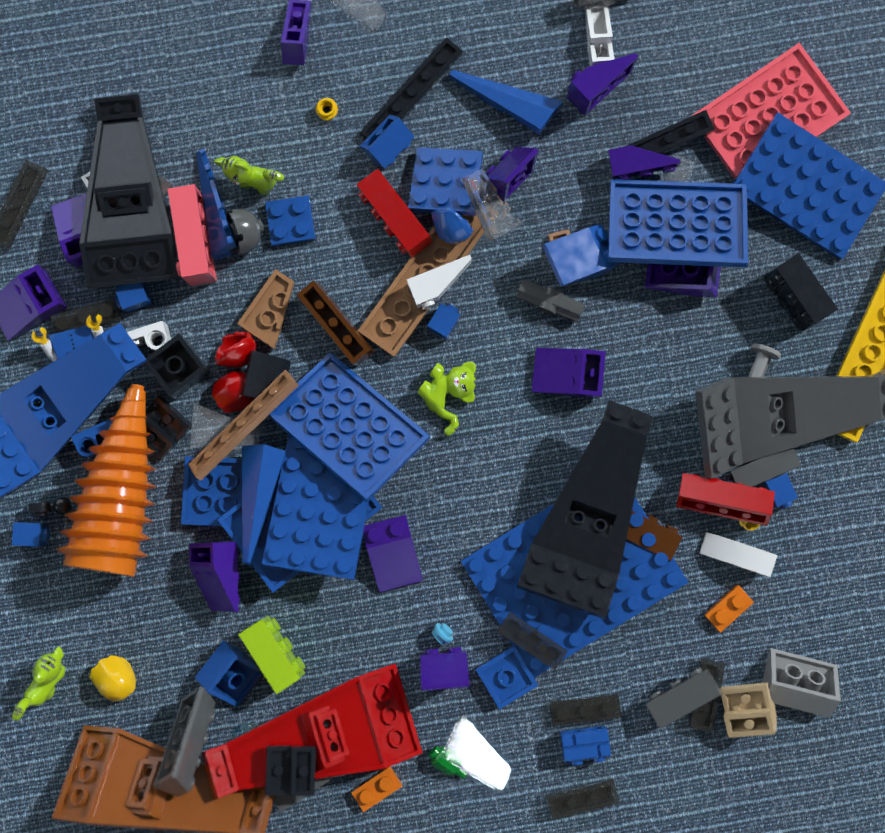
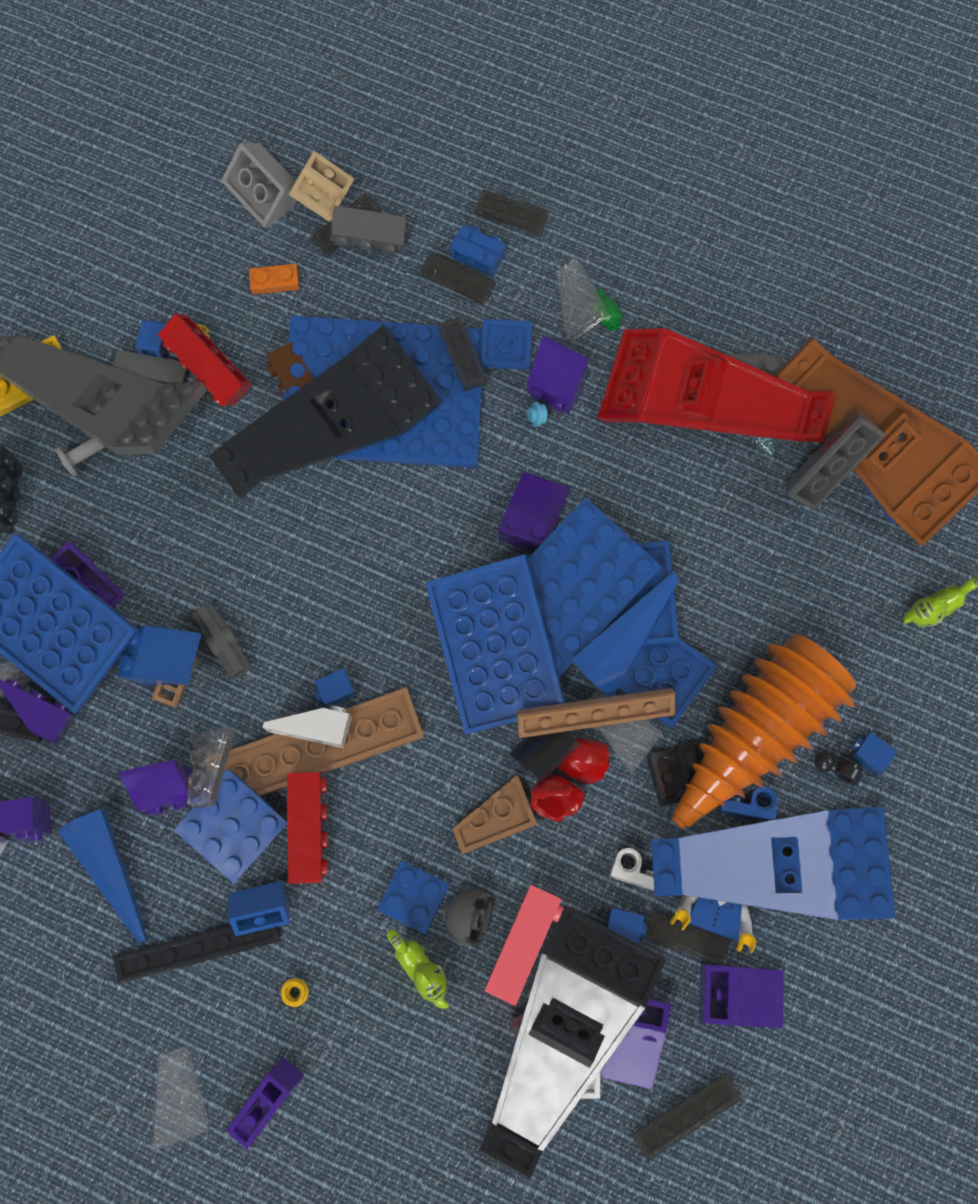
camera: 145 degrees left, 10 degrees down
(113, 678) = (868, 567): yellow hair -> none
(177, 366) = (624, 819): black brick -> none
(216, 573) = (710, 595): dark purple slope -> none
(218, 228) = (490, 937): blue wedge -> none
(229, 674) = (756, 503): blue slope -> none
(273, 653) = (703, 490): lime brick -> none
(290, 770) = (751, 376): black slope -> none
(335, 323) = (439, 756): reddish brown brick -> none
(376, 788) = (691, 327): orange plate -> none
(451, 226) = (259, 769): blue hair -> none
(458, 382) = (364, 622): lime animal -> none
(569, 372) = (254, 561): dark purple slope -> none
(738, 554) = (230, 312): white slope -> none

